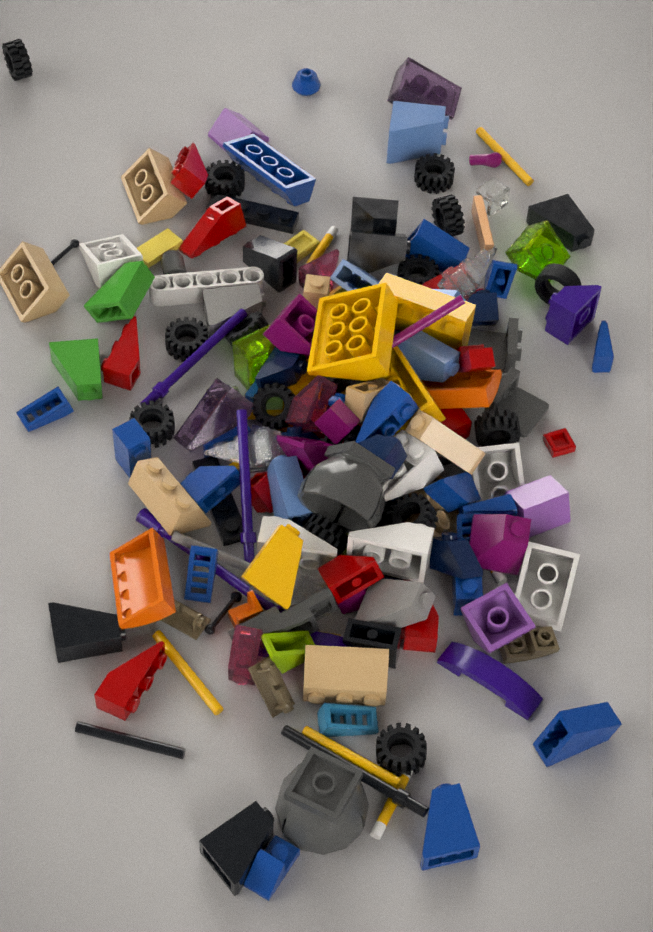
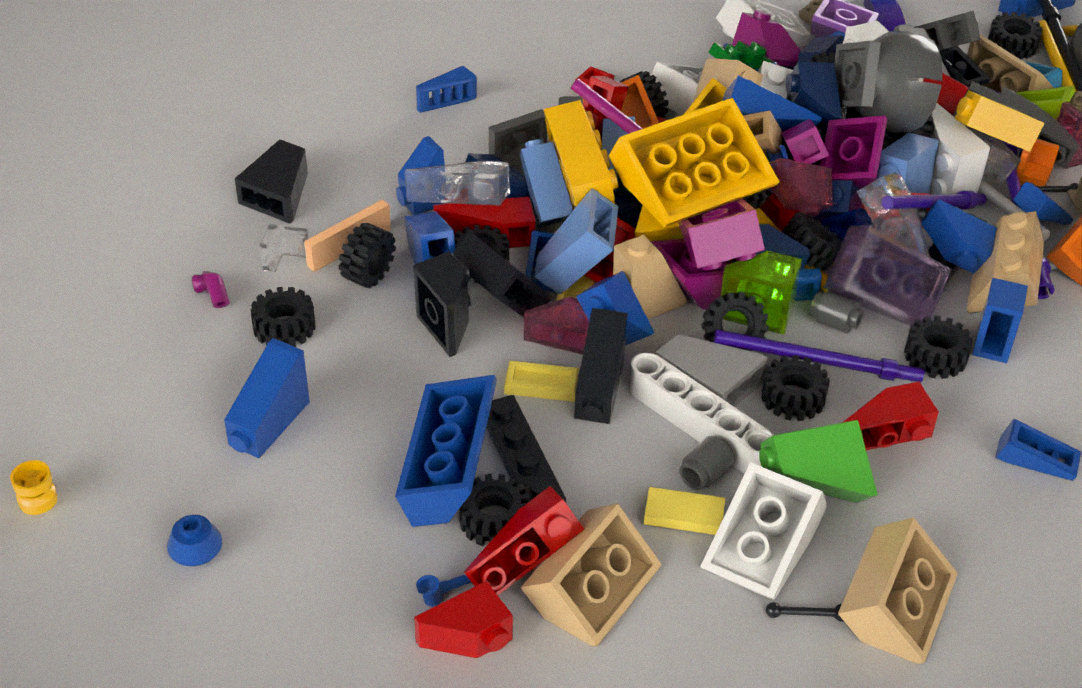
camera: 125 degrees left, 10 degrees down
(79, 366) = (949, 452): bright green slope -> none
(169, 136) = (466, 624): none -> red slope
(202, 143) = (437, 589): none -> blue hand
(215, 225) = (604, 457): red slope -> none
(231, 126) = (381, 555): medium lavender slope -> none
(295, 276) = (617, 295): none -> blue slope
(323, 245) = (530, 356): yellow bar -> none
(367, 134) = (268, 399): none -> blue slope
(386, 46) = (34, 487): none -> yellow wheel
(415, 131) = (227, 342): medium blue slope -> none
(419, 640) = (953, 30): none -> dark grey slope
(423, 86) = (120, 401): clear purple slope -> none
(481, 488) = (751, 55): none -> green slope
(506, 158) = (184, 281): yellow bar -> none
(536, 249) = (347, 180): clear neon green slope -> none
(544, 503) = (688, 44): medium lavender slope -> none
(558, 273) = (397, 133): black tyre -> none
(571, 311) = (426, 107): dark purple slope -> none

